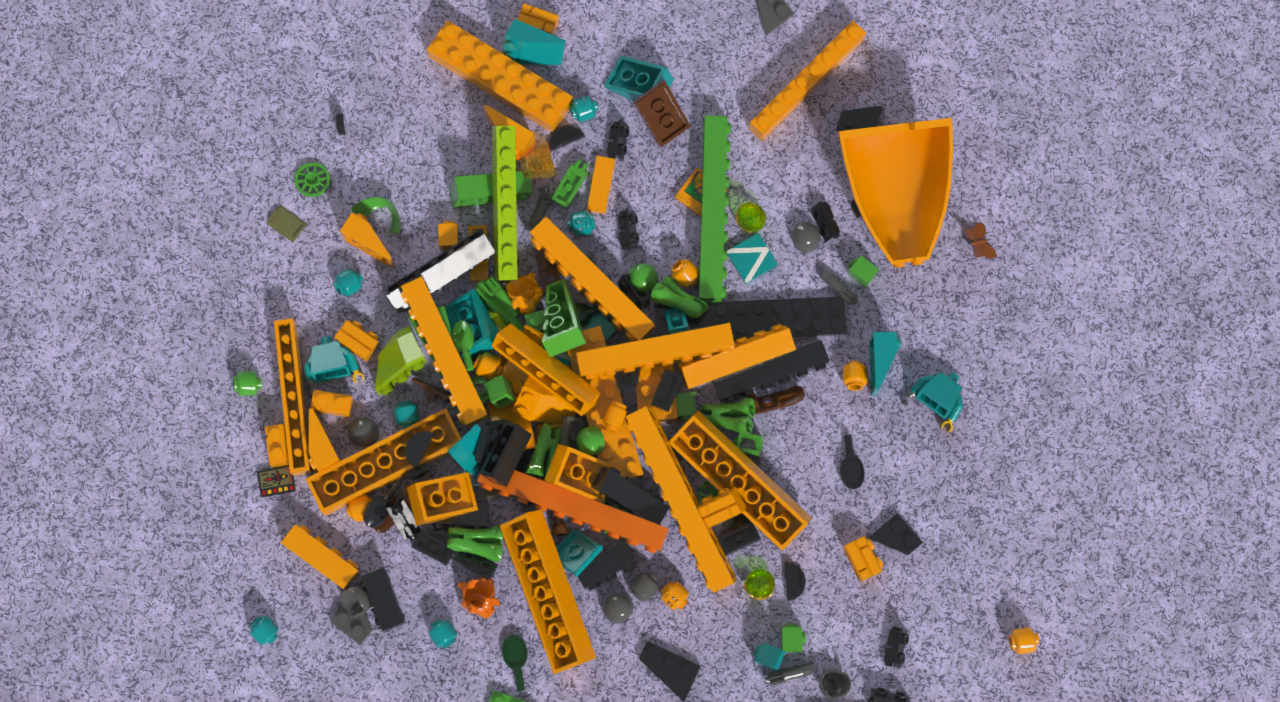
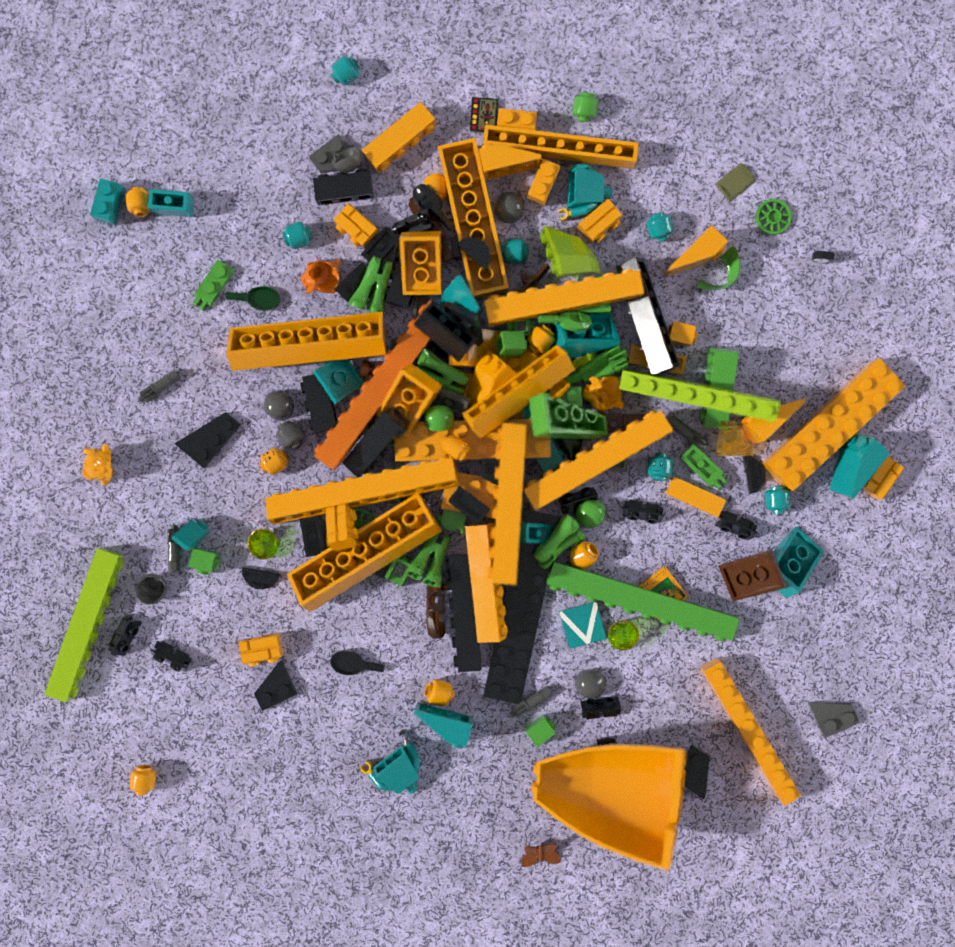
camera: 110 degrees right, 10 degrees up
(419, 577) = (356, 226): none -> light orange brick

